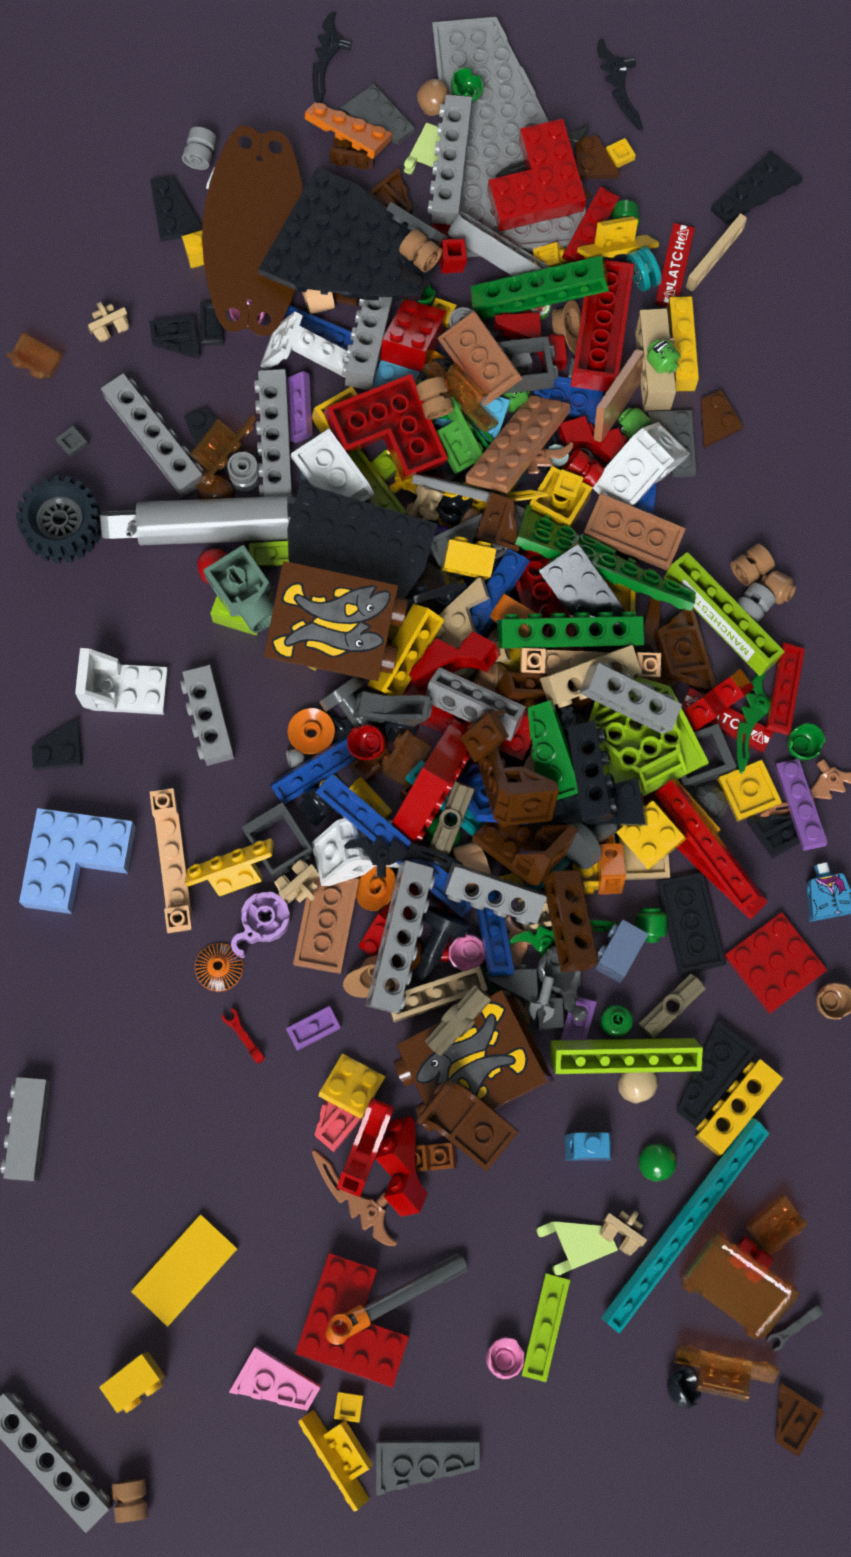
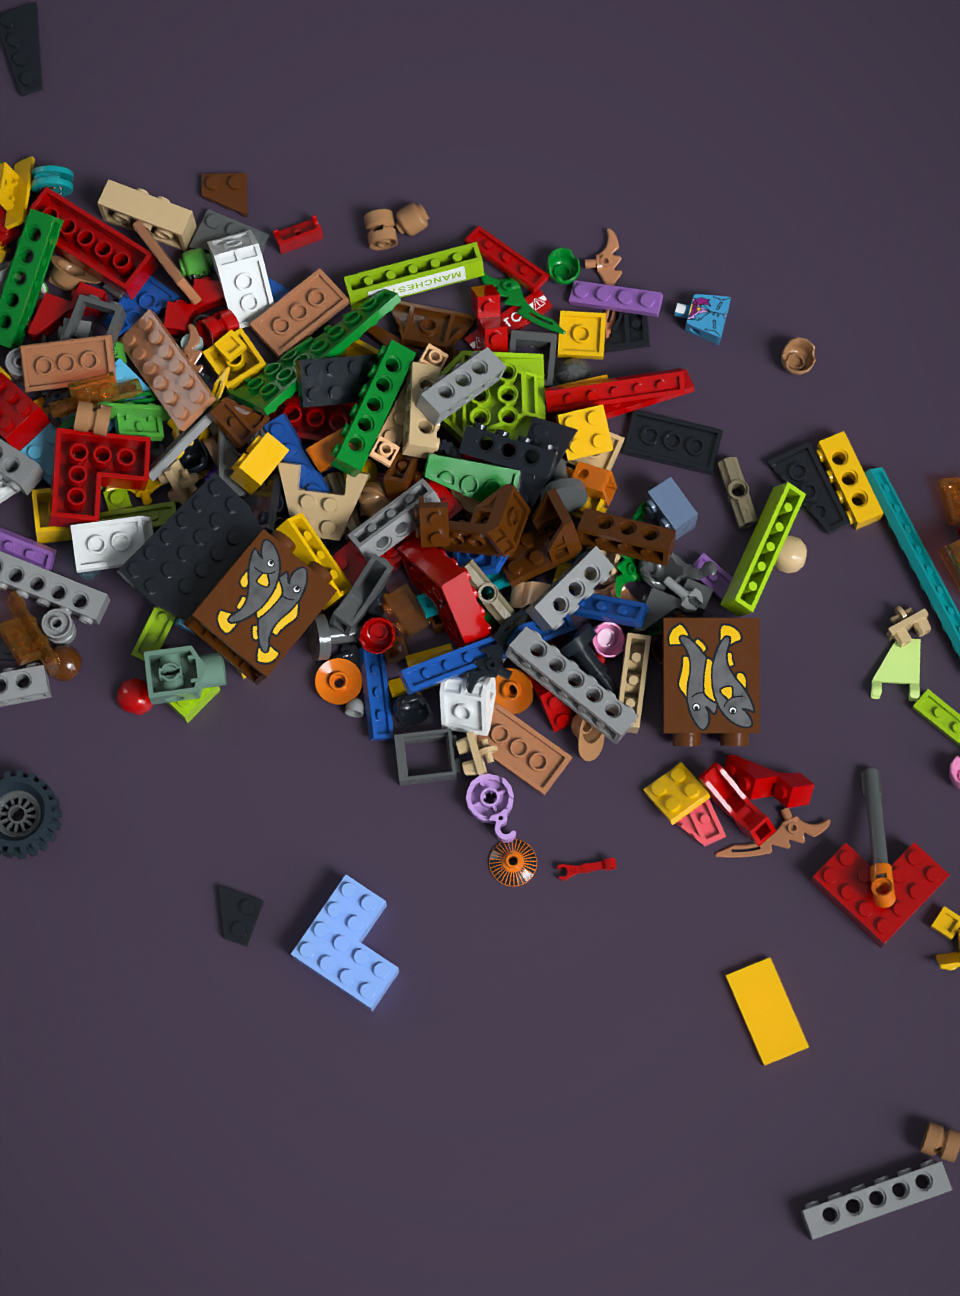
camera: 60 degrees left, 0 degrees up
(26, 1129) = (579, 1094): light grey brick -> none
(115, 687) = (210, 829): white bracket -> none
(132, 1382) = (845, 1093): yellow brick -> none
(172, 860) = (398, 860): light nougat slope -> none
(201, 520) = (92, 679): light grey piece -> none
(220, 749) = (242, 752): light grey brick -> none
(233, 869) = (433, 807): yellow bracket -> none
(274, 1381) = (897, 975): bright pink wing -> none
(313, 1028) = (609, 804): medium lavender plate -> none
(435, 1157) = (771, 751): dark orange slope -> none
(458, 1020) = (672, 666): dark tan piece -> none
(468, 1123) = (764, 700): reddish brown bracket -> none
(473, 653) = (347, 499): red arch -> none
(588, 1146) = (823, 618): dark azure torso -> none
(608, 1024) = (728, 551): green head -> none
(653, 922) = (657, 471): green head -> none
(657, 1162) = (863, 570): green hair -> none
(663, 356) = (156, 204): bright green head -> none
(675, 263) = (59, 153): red tile -> none
(683, 331) = (135, 177): yellow arch -> none
(709, 498) = (298, 235): none -> red hinge
(716, 252) = (68, 111): tan tile -> none
(756, 601) = (416, 243): light grey wheel -> none
(775, 963) = (741, 390): red plate -> none

